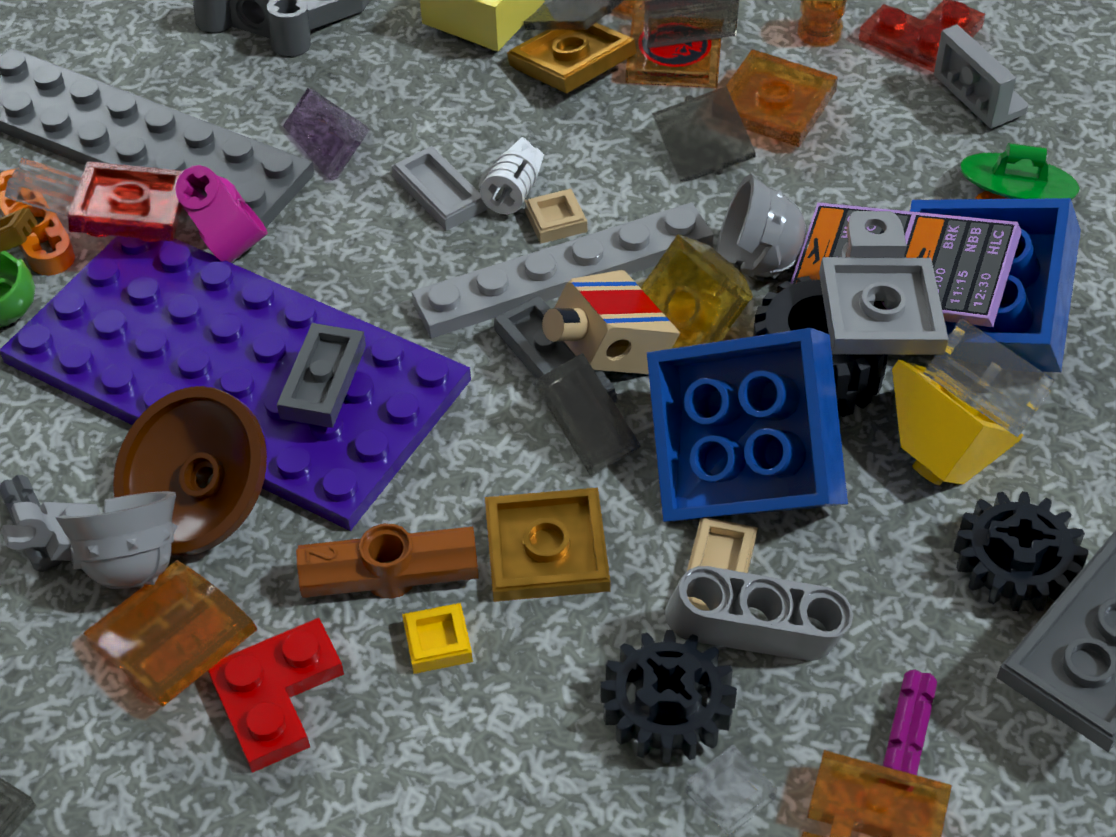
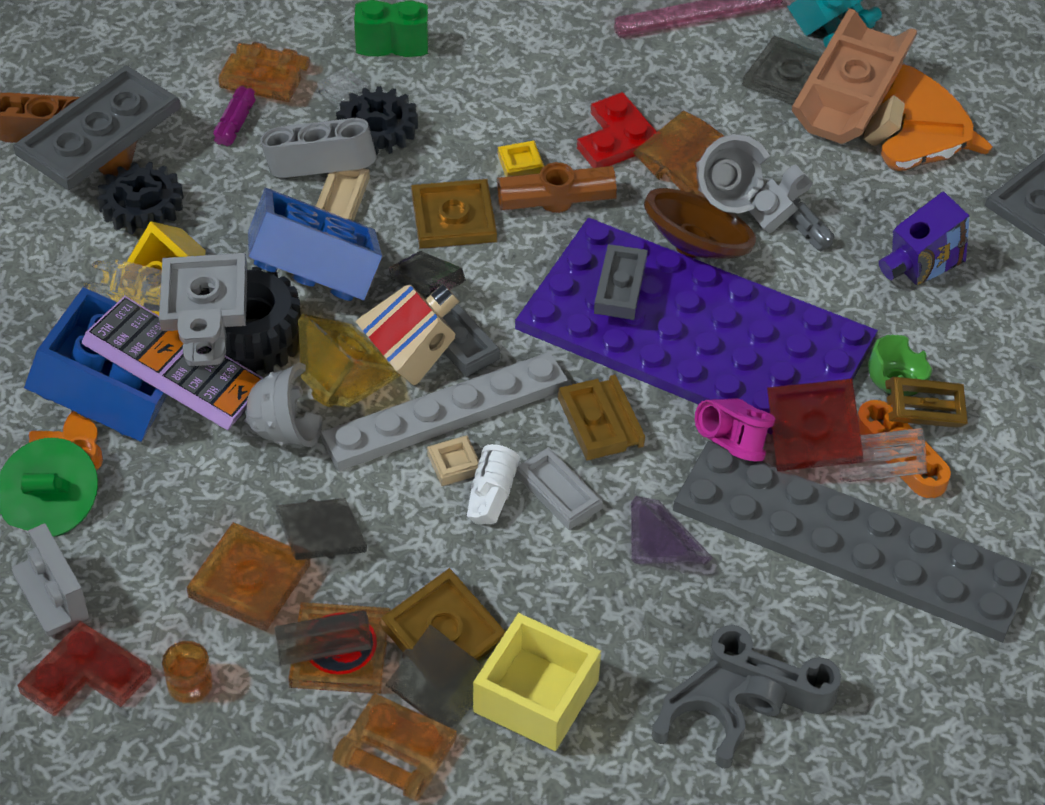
camera: 175 degrees right, 0 degrees up
(378, 250) = (601, 417): none -> pearl gold plate

